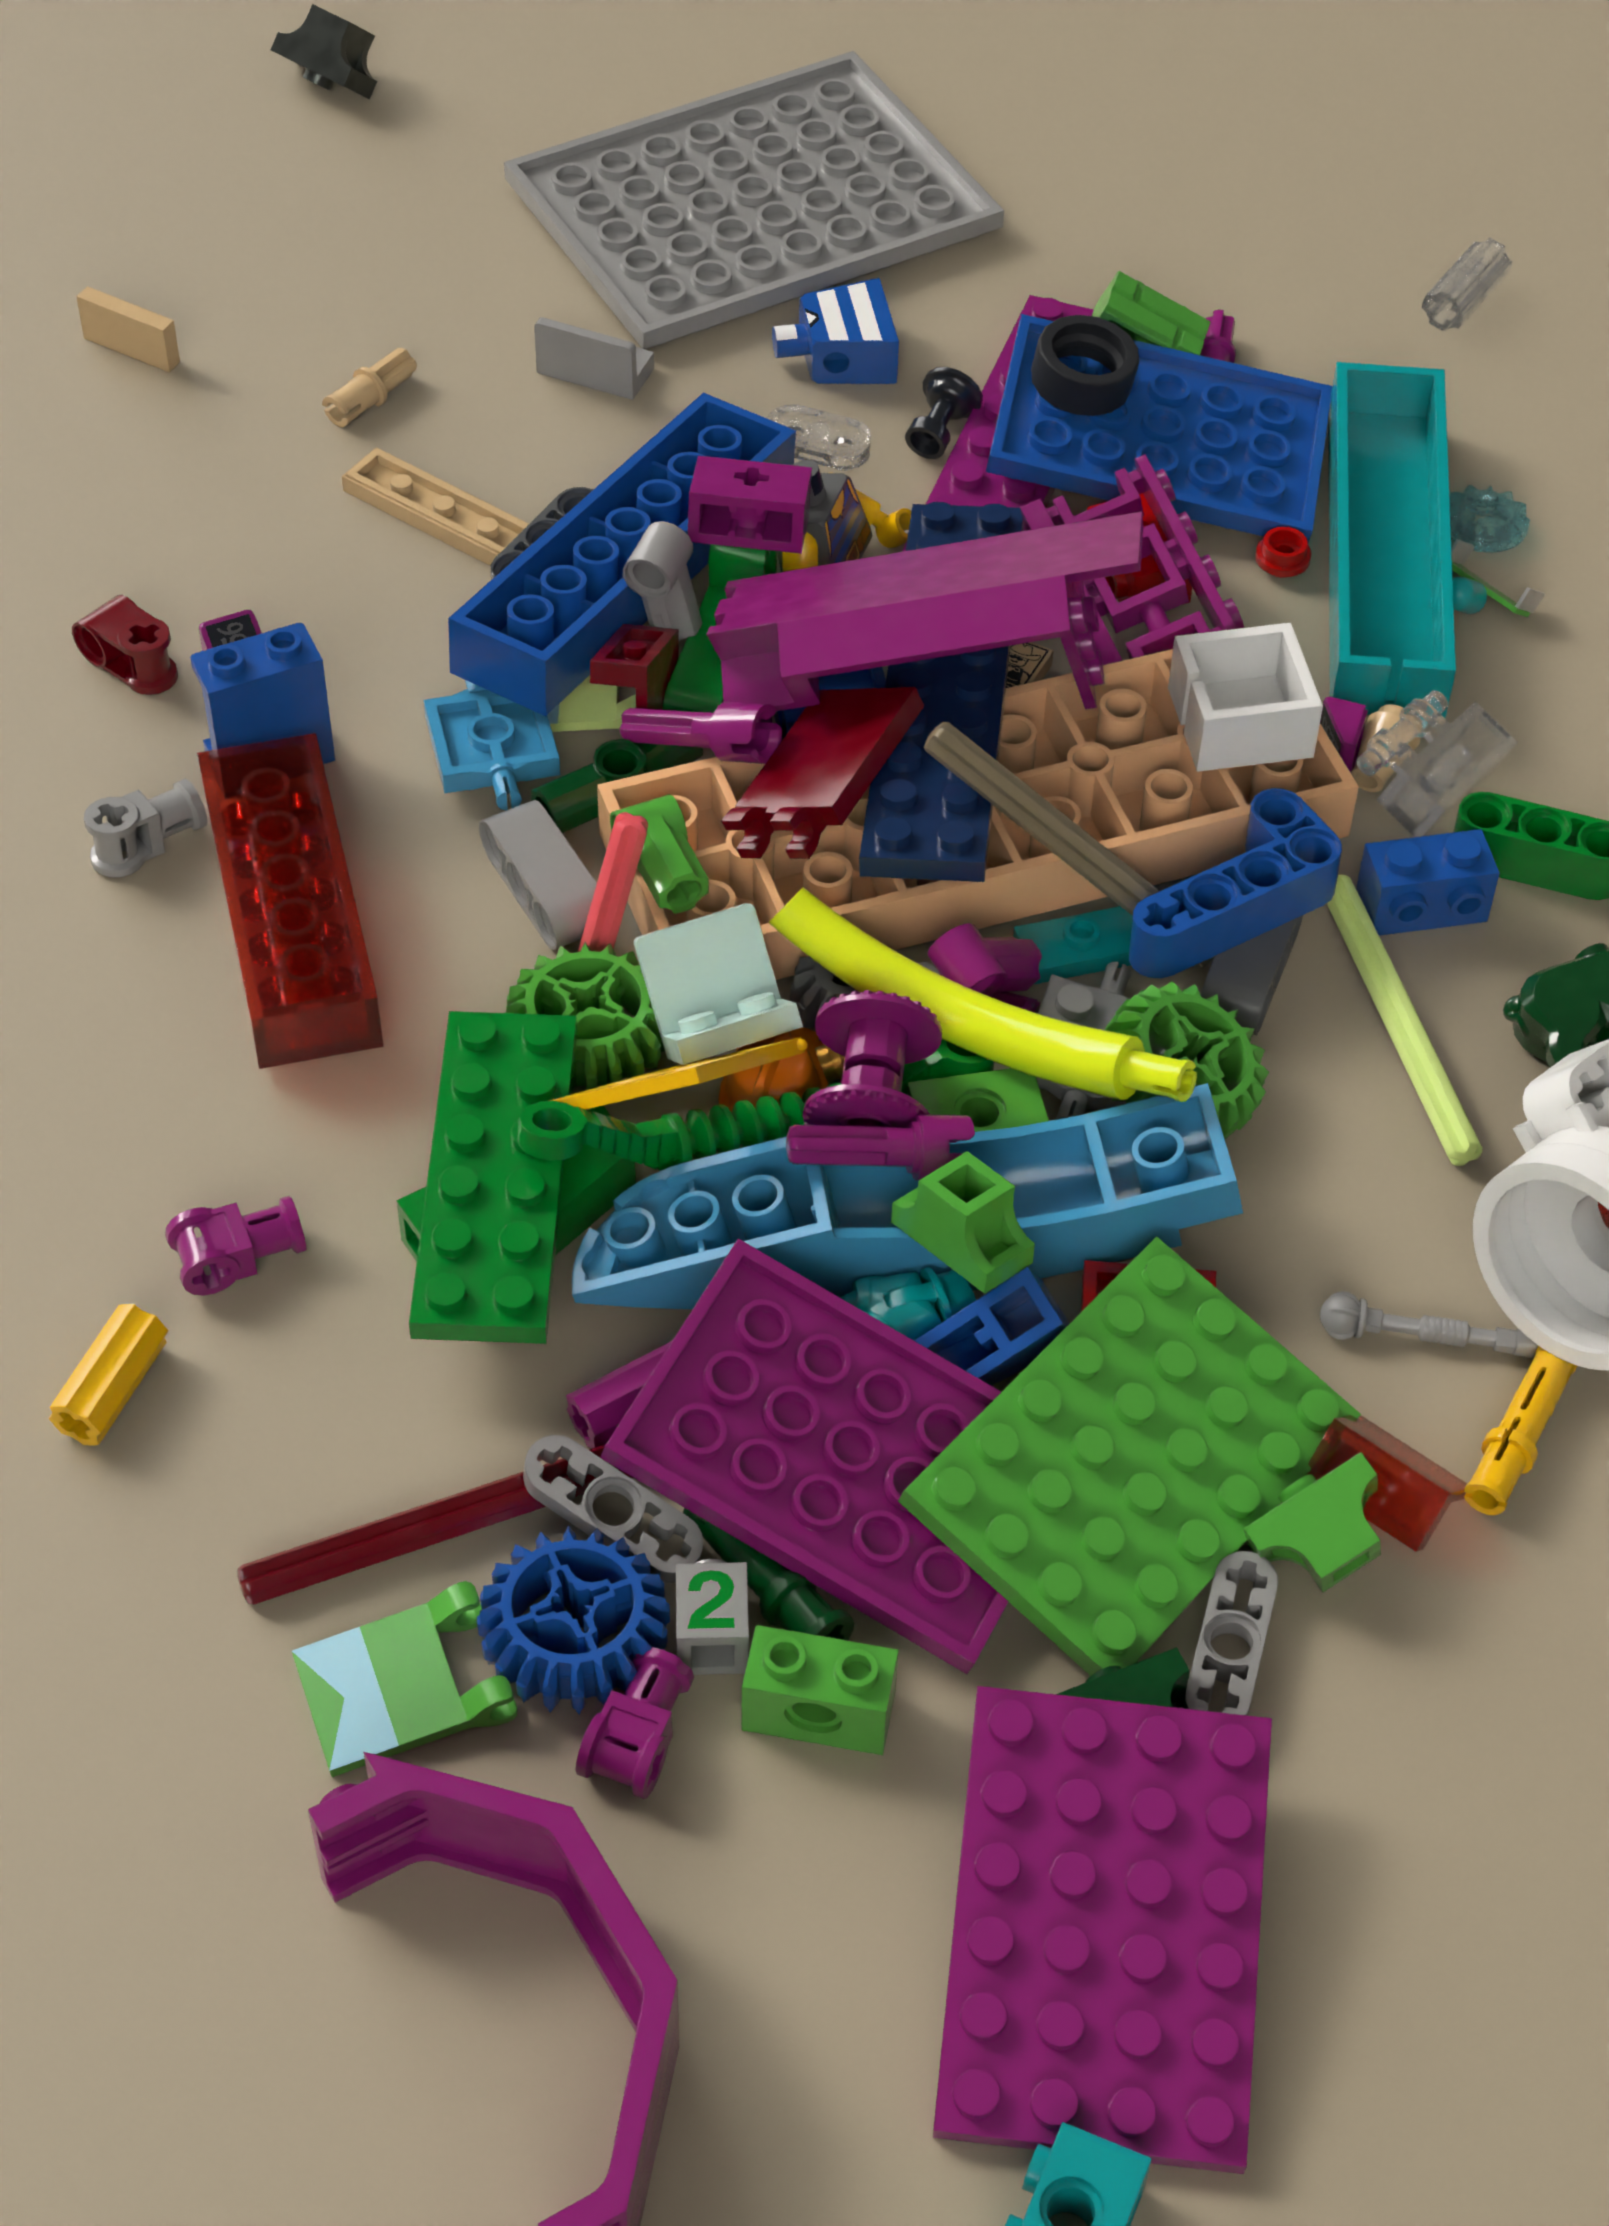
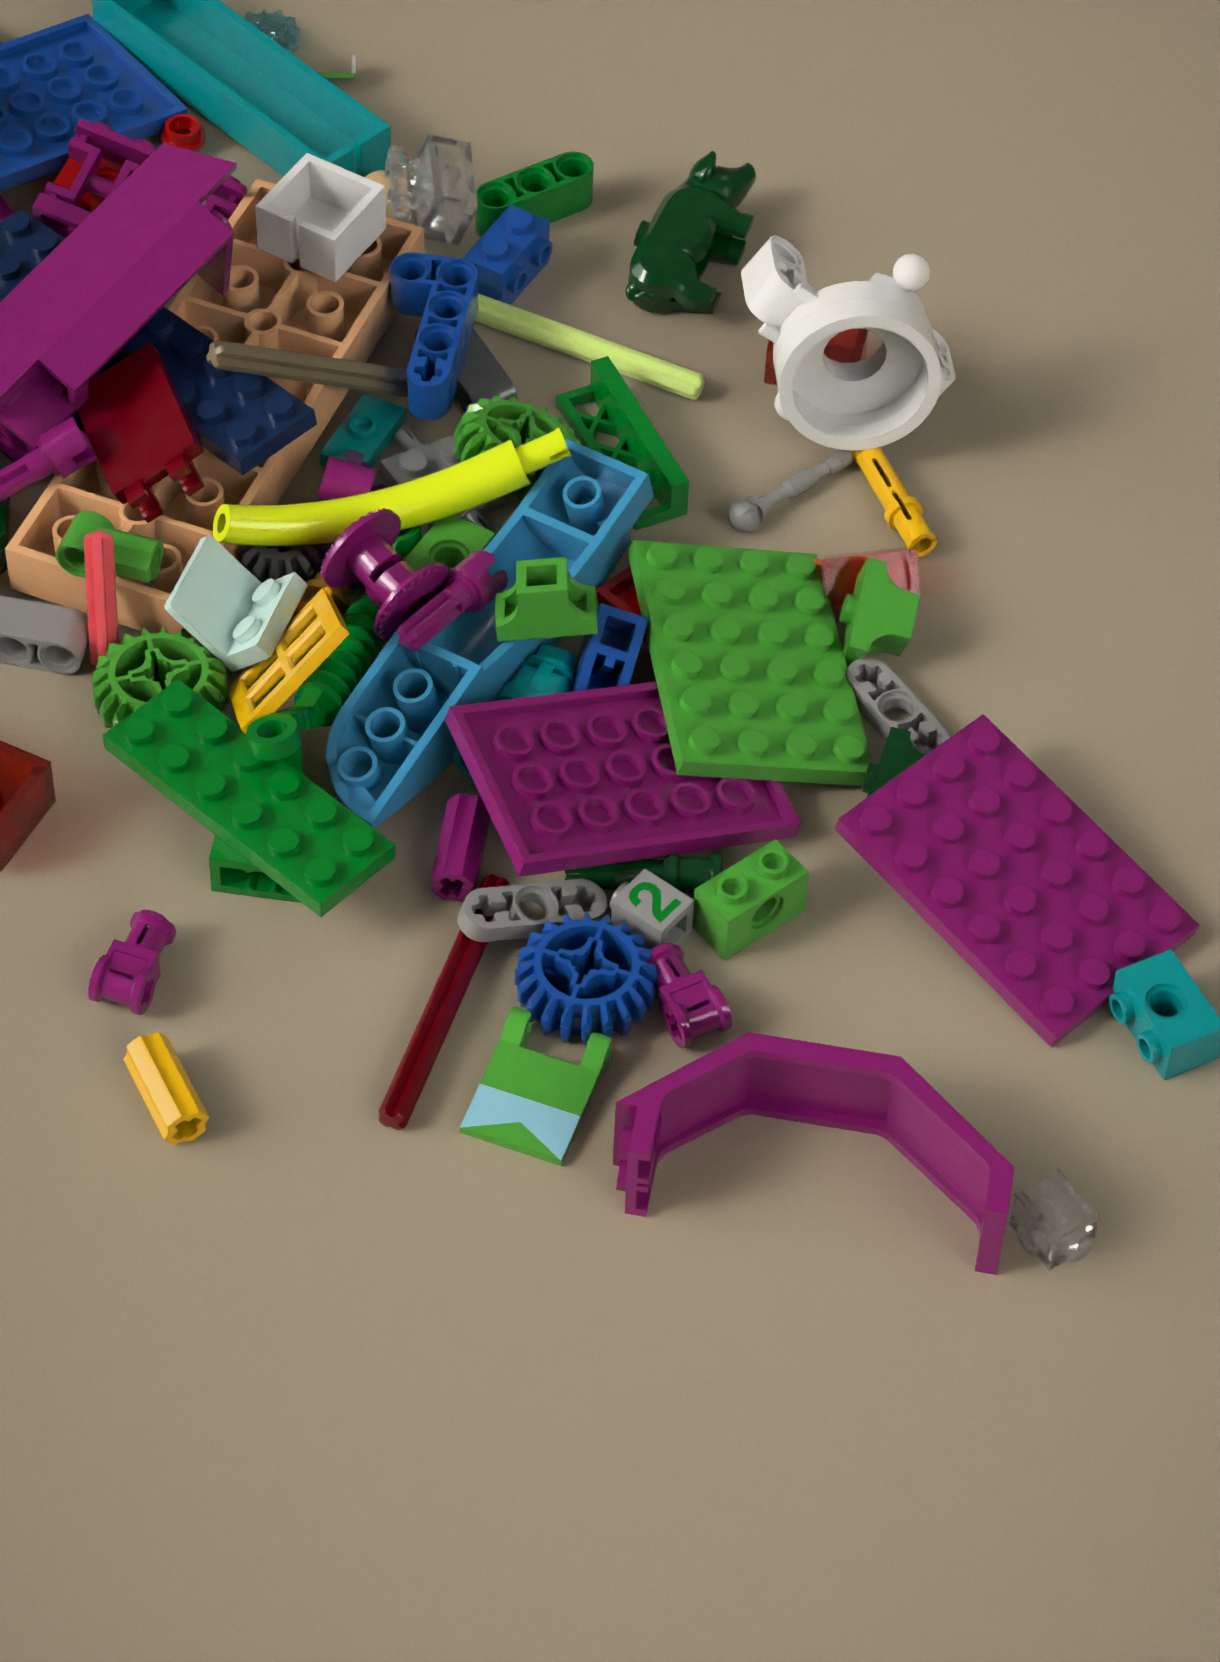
camera: 50 degrees left, 0 degrees up
(1318, 1161) = (635, 434): none -> green fence

